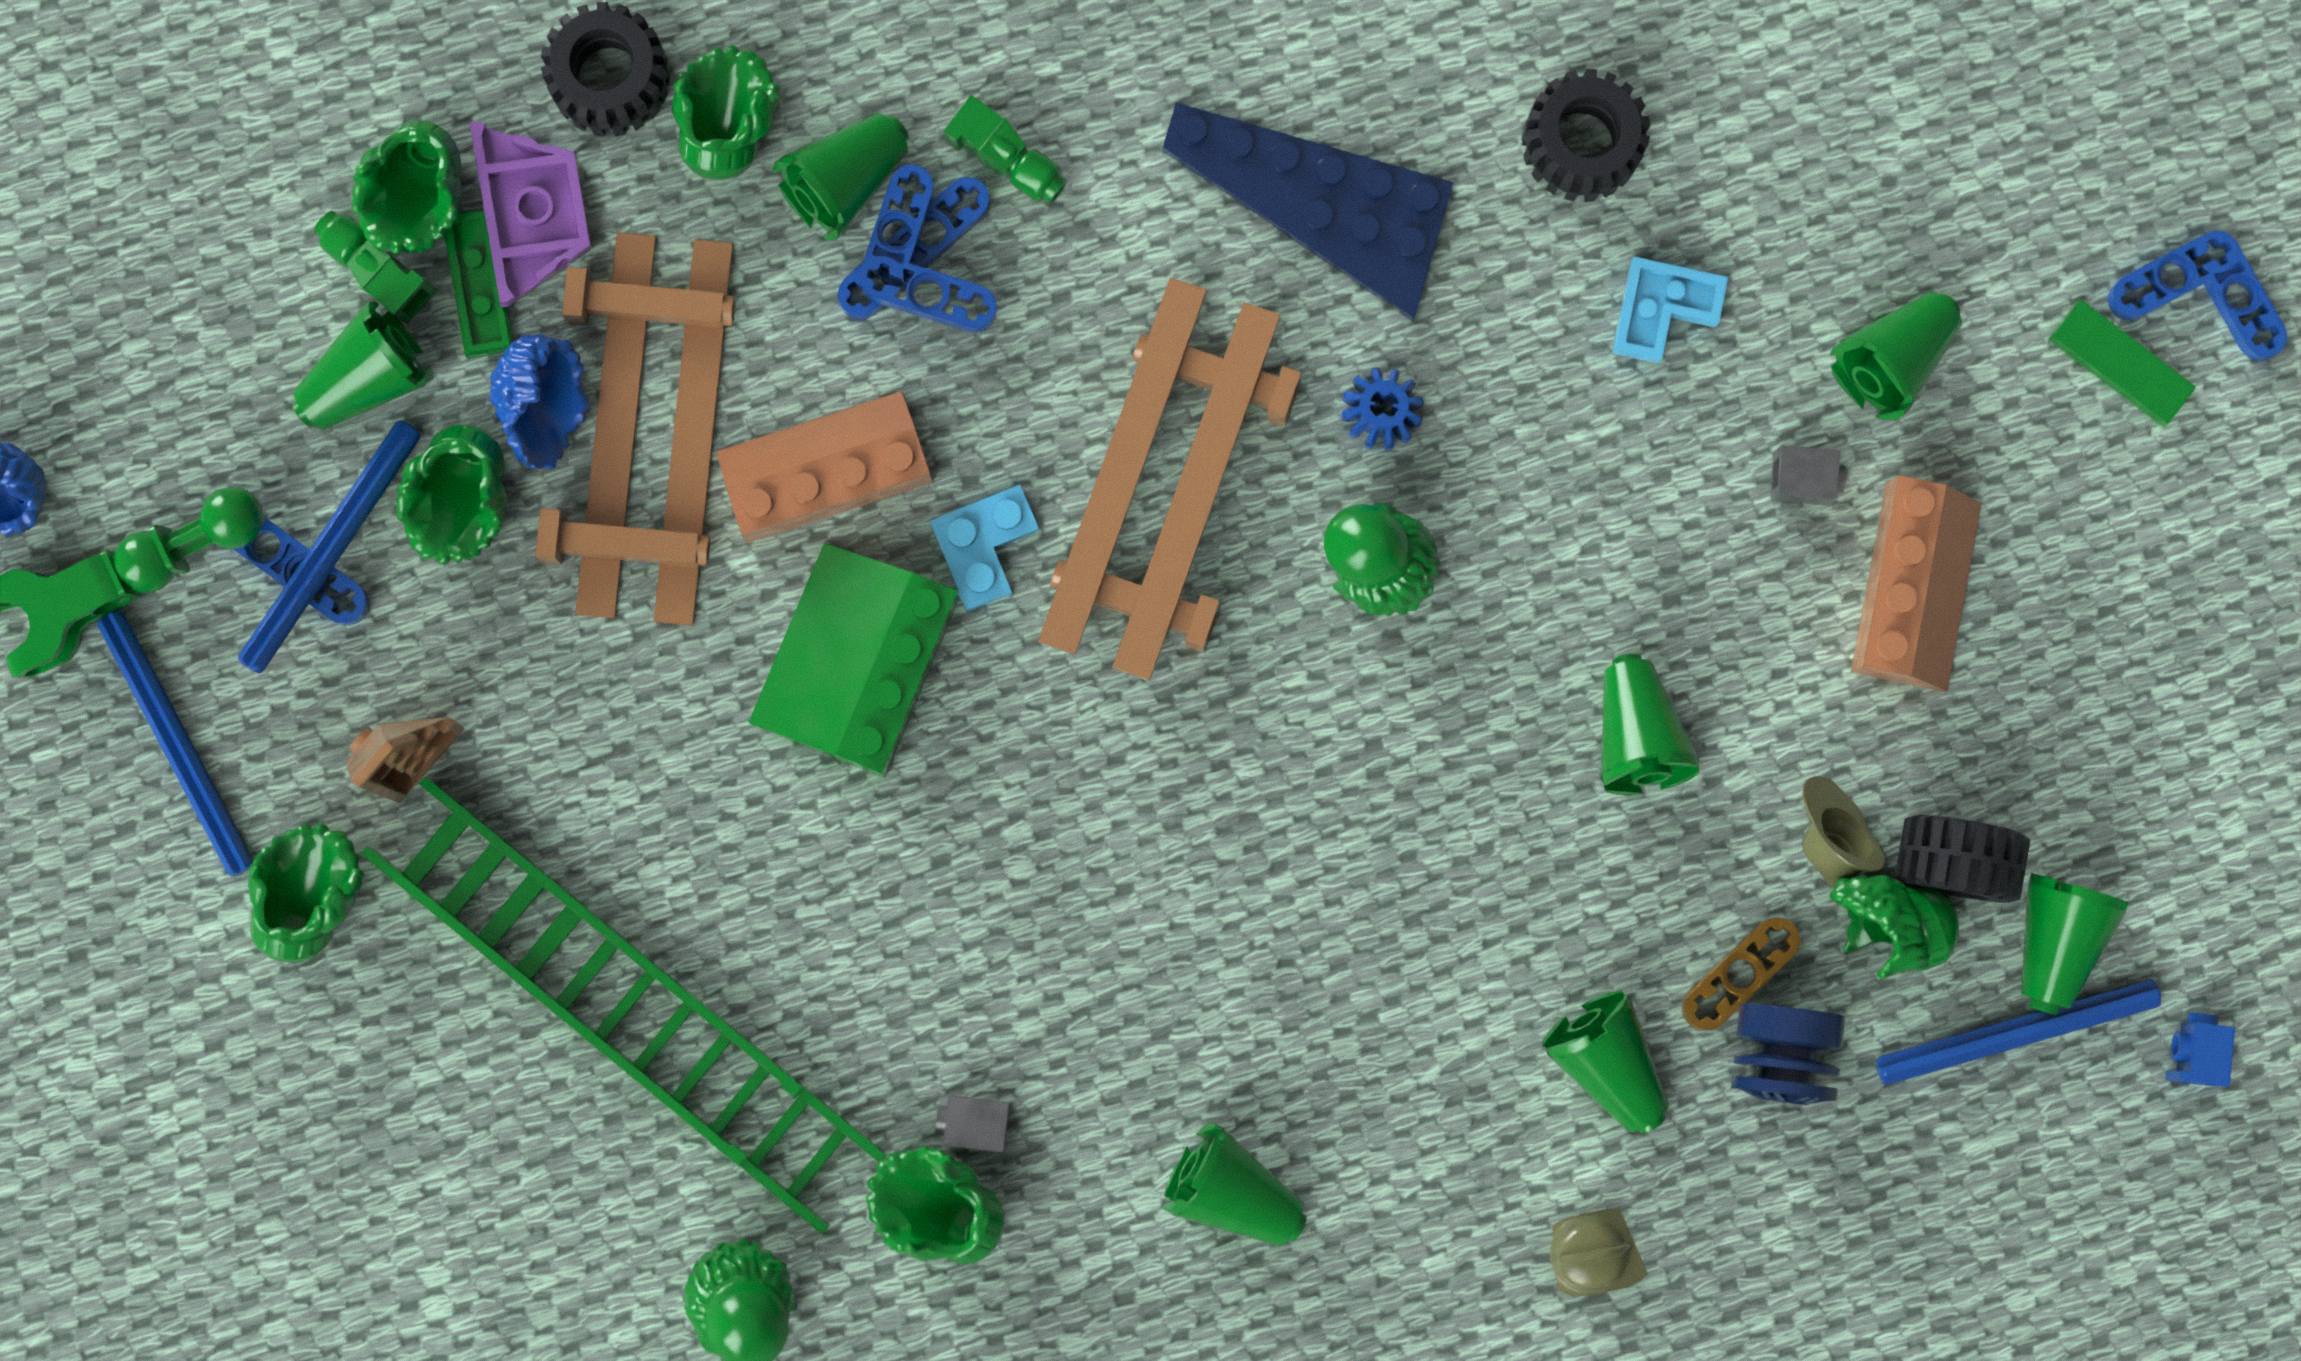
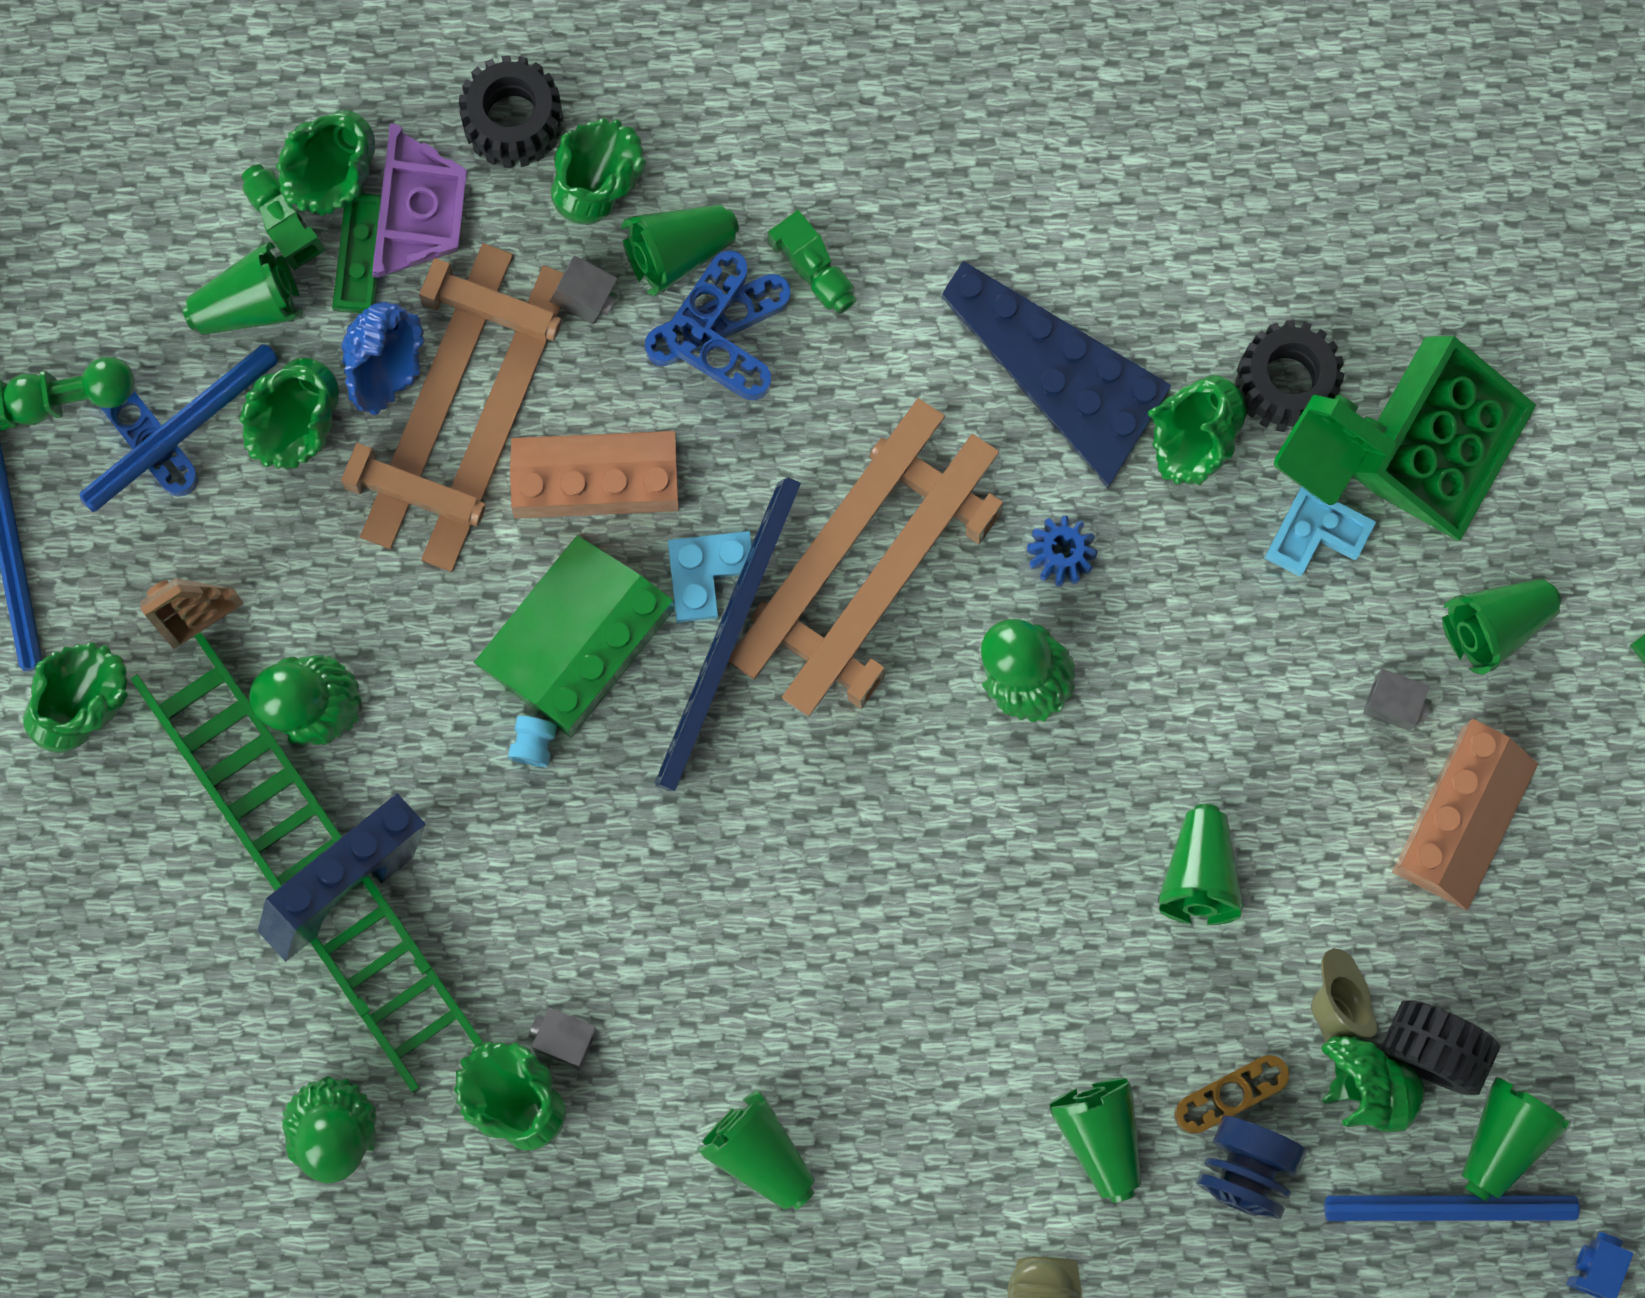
camera: 20 degrees right, 5 degrees down
(570, 820) = (307, 699): none -> green hair
(696, 974) = (374, 846): none -> dark blue arch
(752, 256) = (585, 290): none -> flat silver brick
(842, 796) = (532, 741): none -> medium azure wheel
(1029, 611) = (727, 634): none -> dark blue tile
(1499, 227) = (1197, 429): none -> green hair
(1655, 205) = (1330, 446): none -> green bracket
(1776, 156) = (1451, 434): none -> green slope

